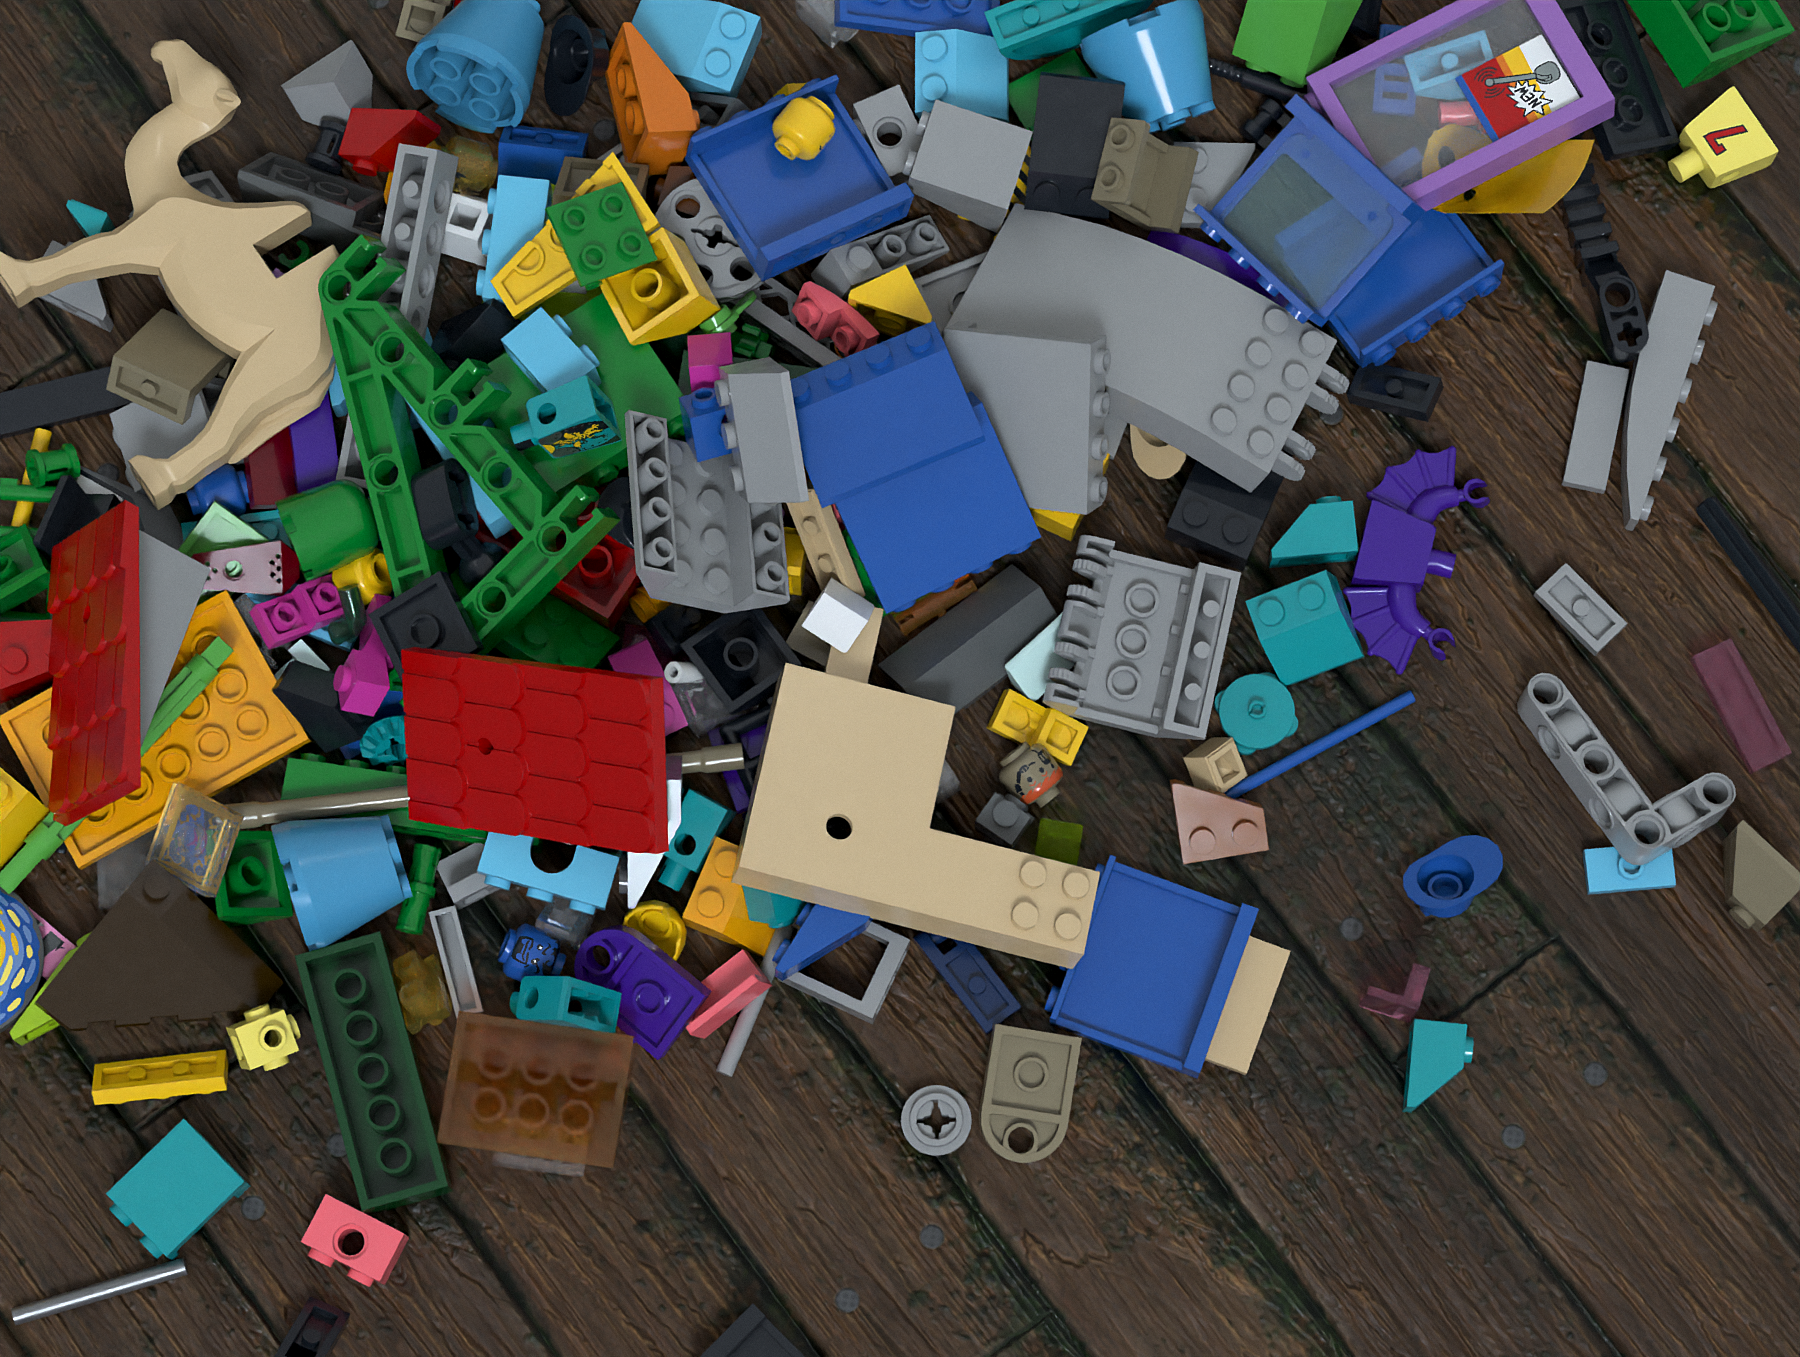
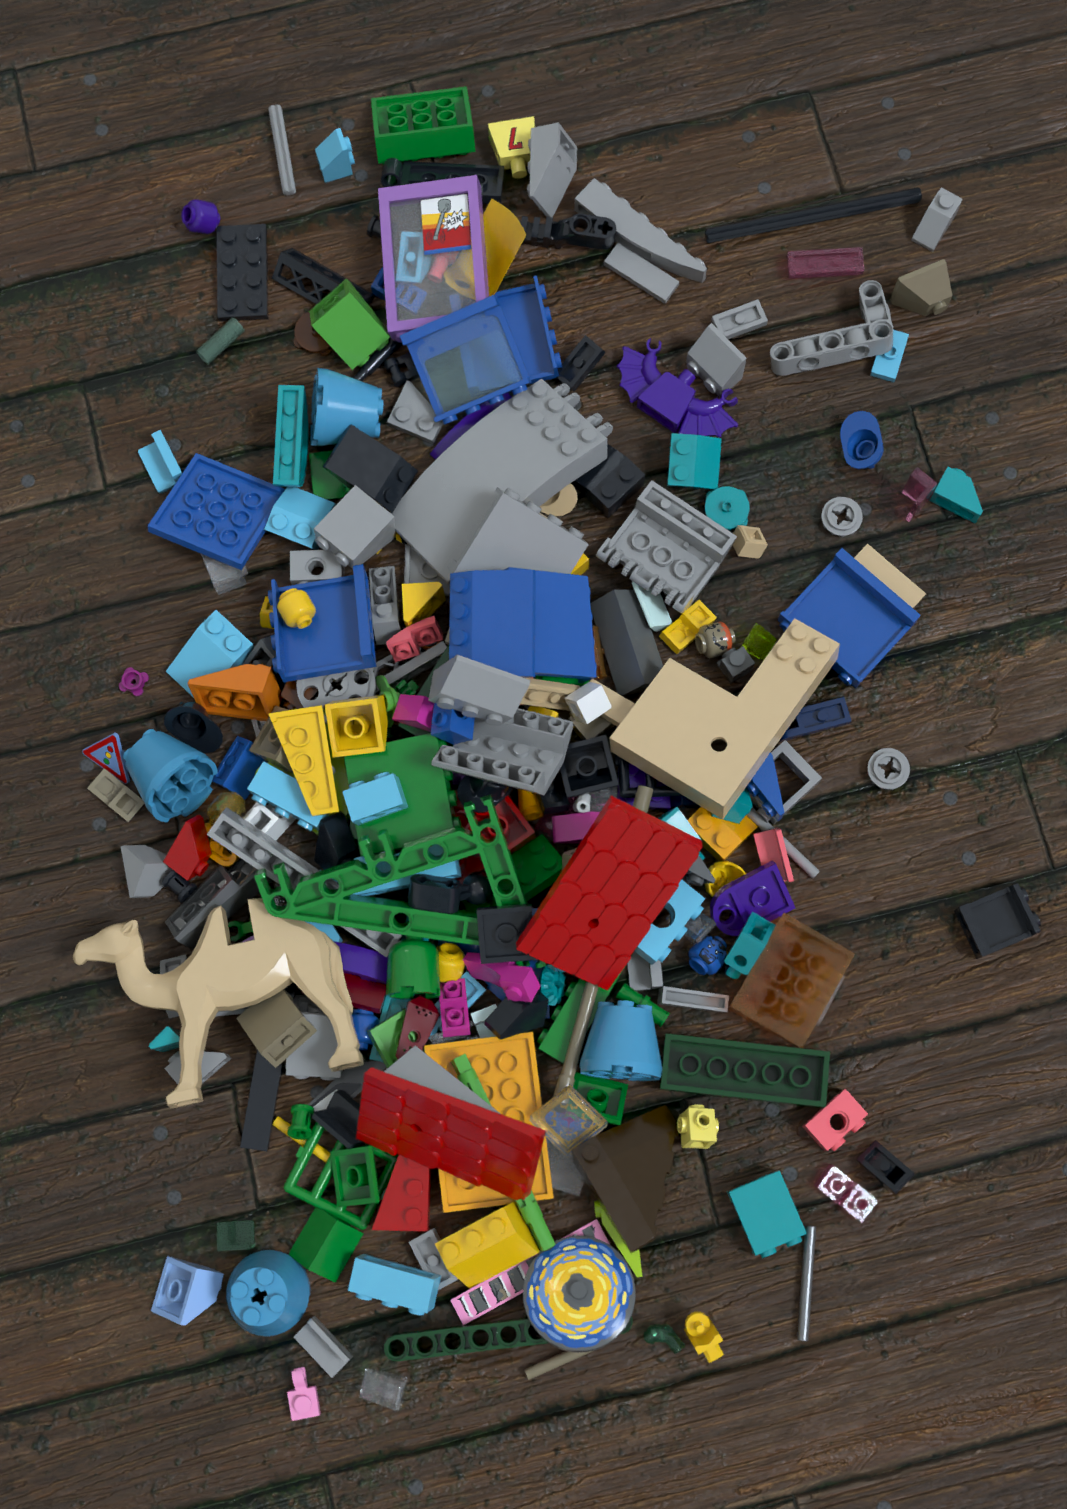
camera: 65 degrees left, 0 degrees up
(160, 1077) = (695, 1198): yellow plate -> none
(254, 1300) = (846, 1193): none -> slope
(353, 616) = (471, 978): clear green arm -> none
(421, 990) = (707, 1024): clear yellow hips -> none
(568, 420) = (420, 792): teal torso -> none
(601, 235) = (316, 739): green hinge -> none
(1030, 1087) = (890, 712): dark tan tile -> none
(1143, 176) = (404, 439): dark tan panel -> none
(1216, 825) = (782, 553): wing -> none
(1318, 536) = (642, 434): teal slope -> none
(1321, 744) = (758, 487): blue axle -> none
(1335, 882) = (837, 506): none -> light grey gear
(1485, 597) = (716, 361): none -> light grey slope
(1699, 211) = (550, 166): none -> light grey slope

